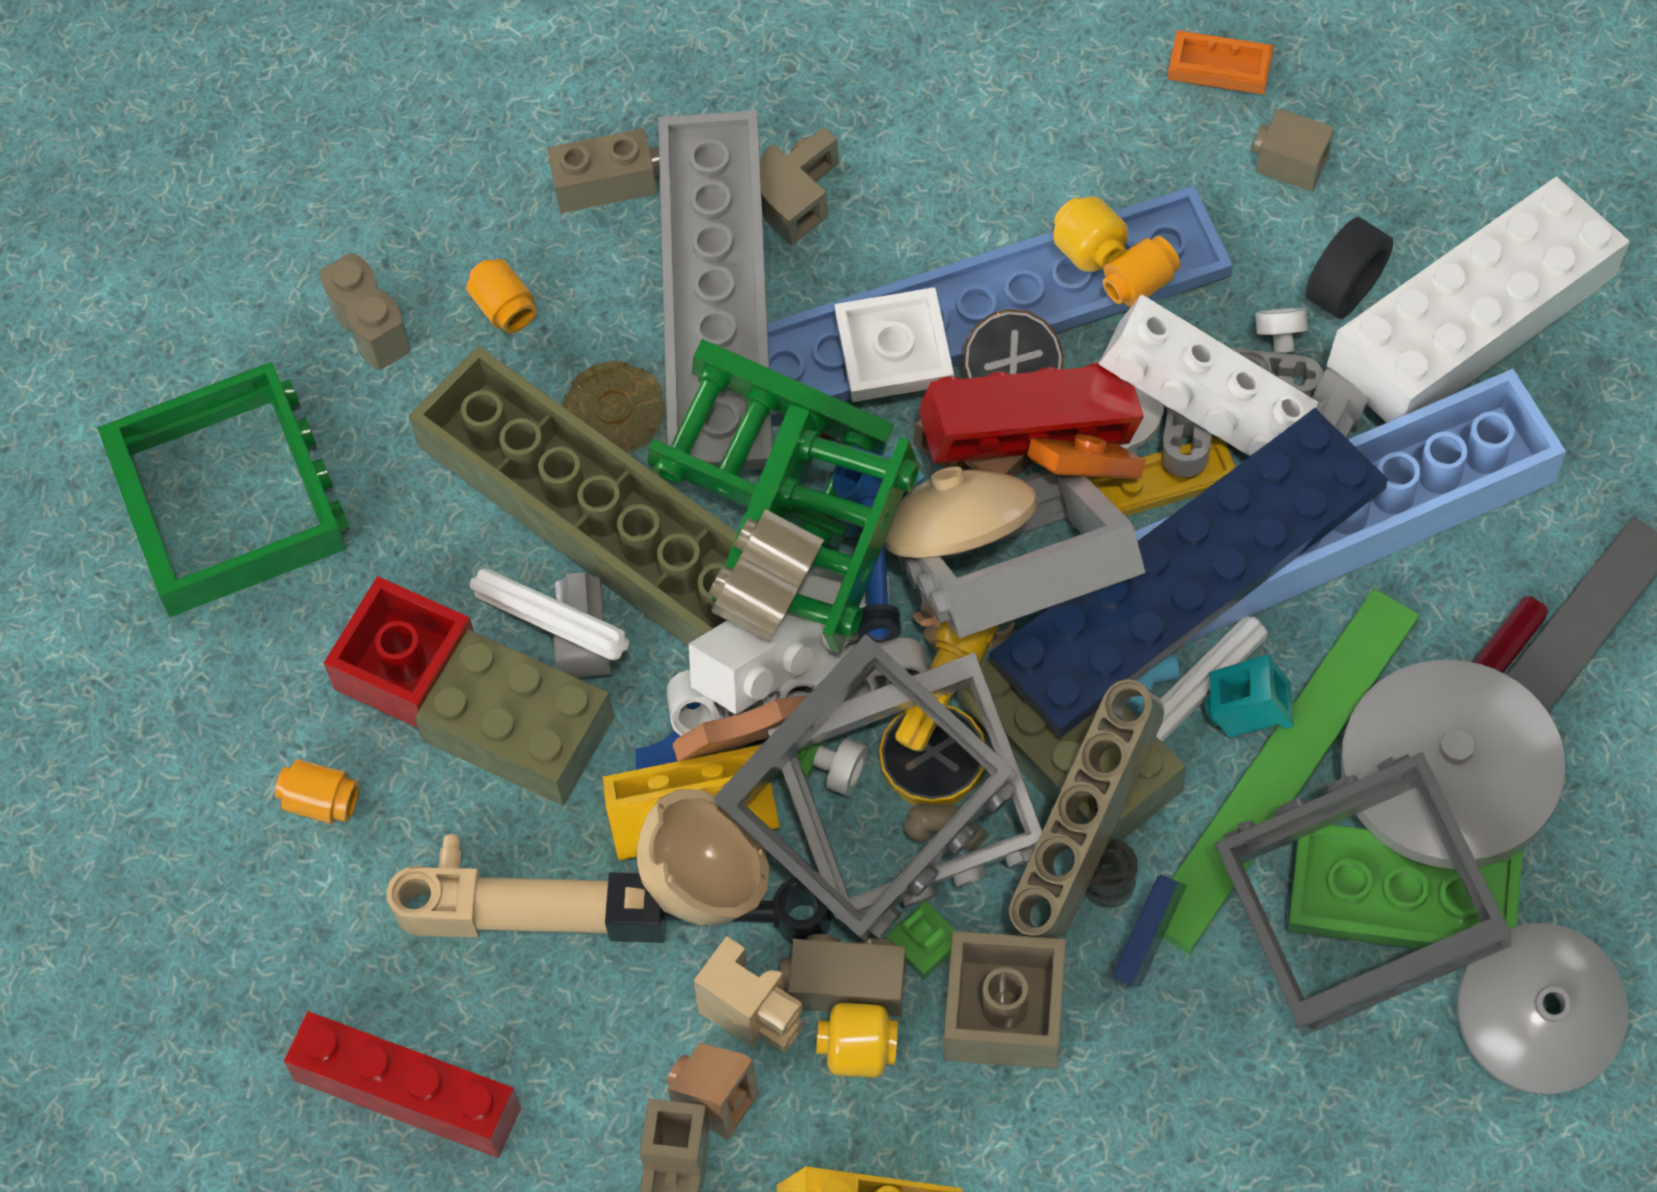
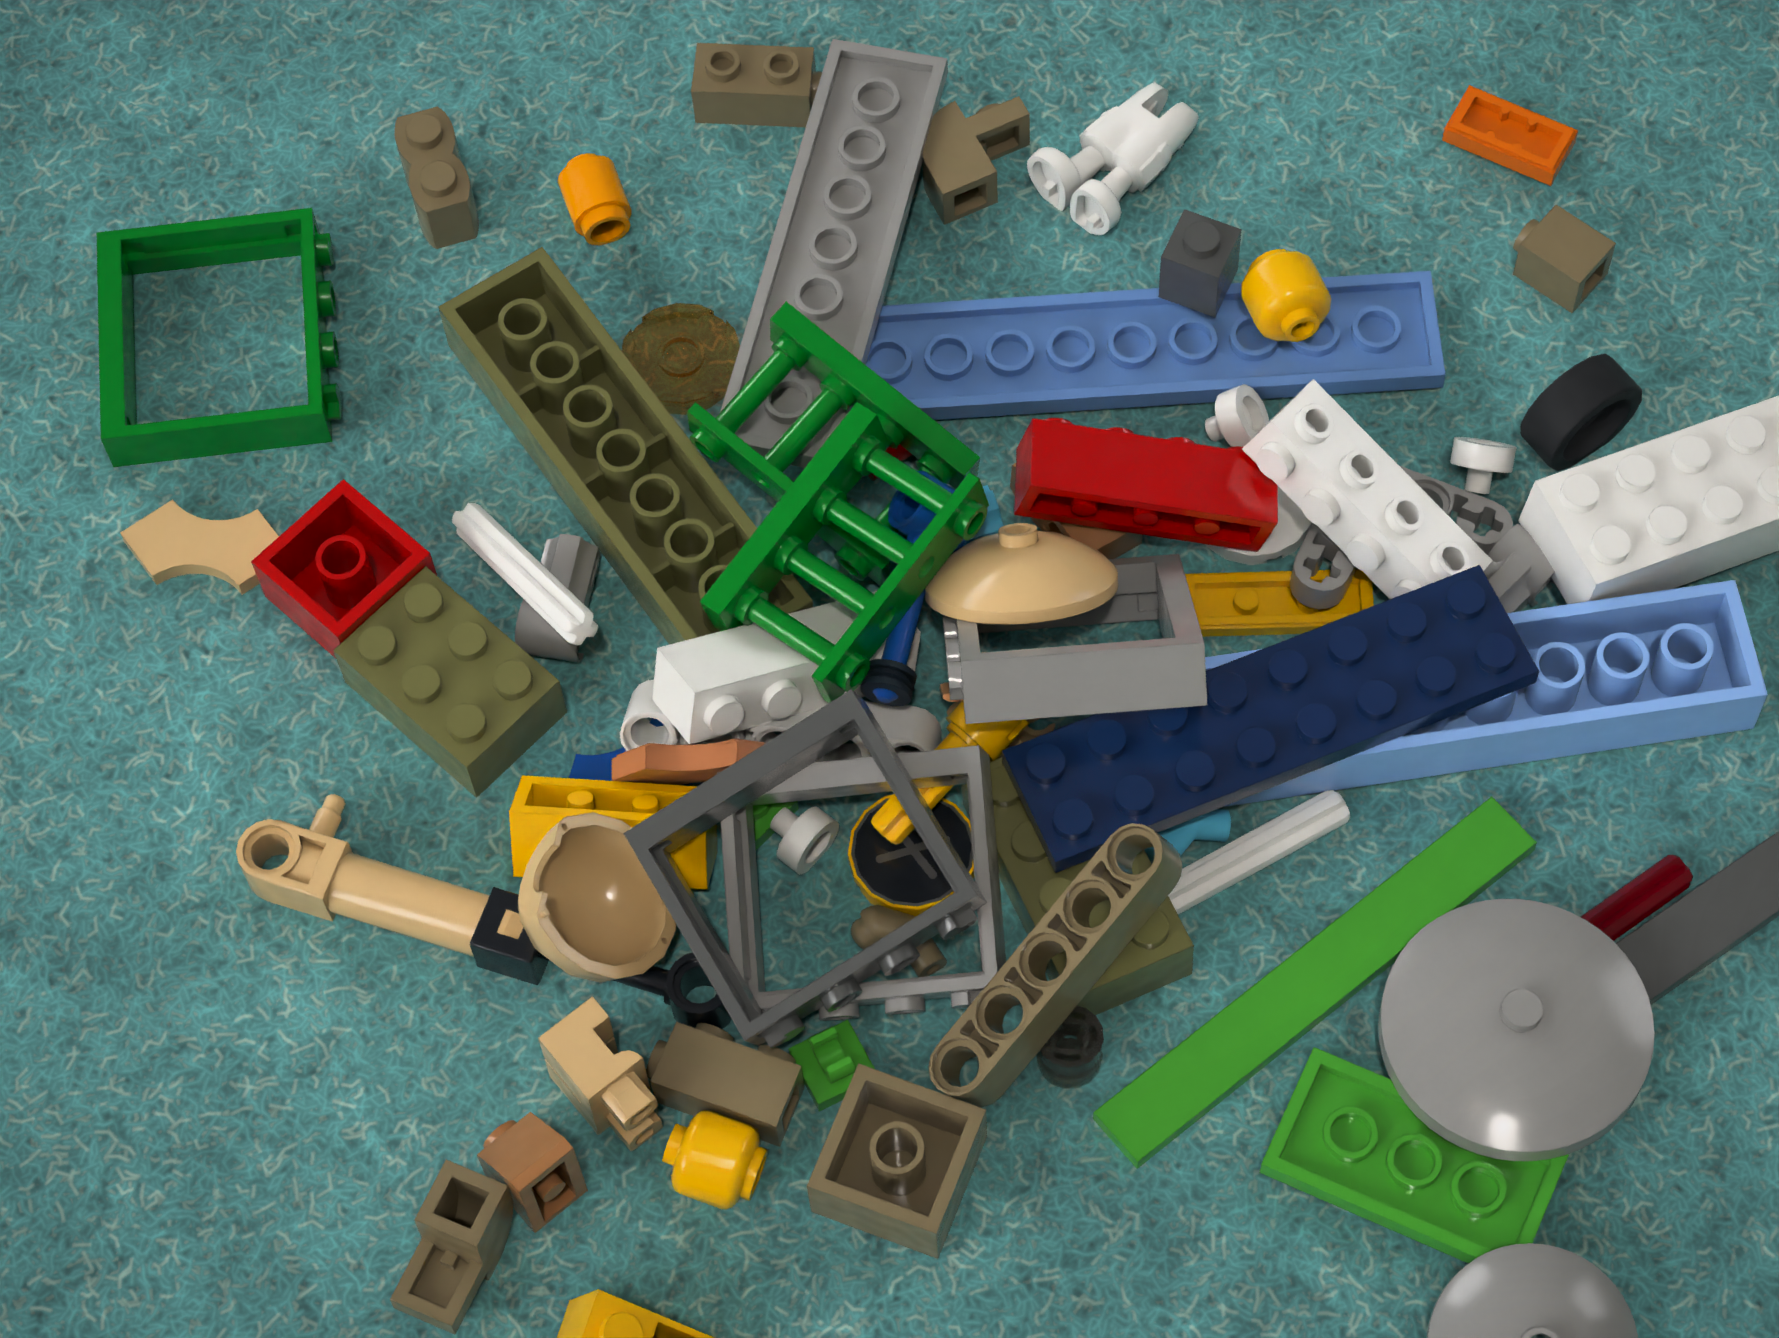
camera: 15 degrees right, 0 degrees up
(247, 665) = (179, 543): none -> tan tile
(317, 792) = (205, 707): light orange brick -> none
(403, 1084) = (188, 1065): red brick -> none
(765, 575) = (764, 590): dark tan brick -> none
(893, 343) = (1016, 364): white plate -> none
(916, 142) = (1121, 140): none -> white piece
(1011, 344) = (1154, 401): black tile -> none
(1014, 225) = (1199, 263): none -> dark grey brick
(1081, 340) = (1237, 416): none -> white tile
(1086, 457) = (1195, 554): orange plate -> none
(1141, 270) = (1331, 353): light orange brick -> none
(1149, 930) = (1092, 1127): dark blue tile -> none
(1249, 697) = (1301, 885): teal brick -> none
(1343, 800) = (1361, 1264): dark grey window -> none

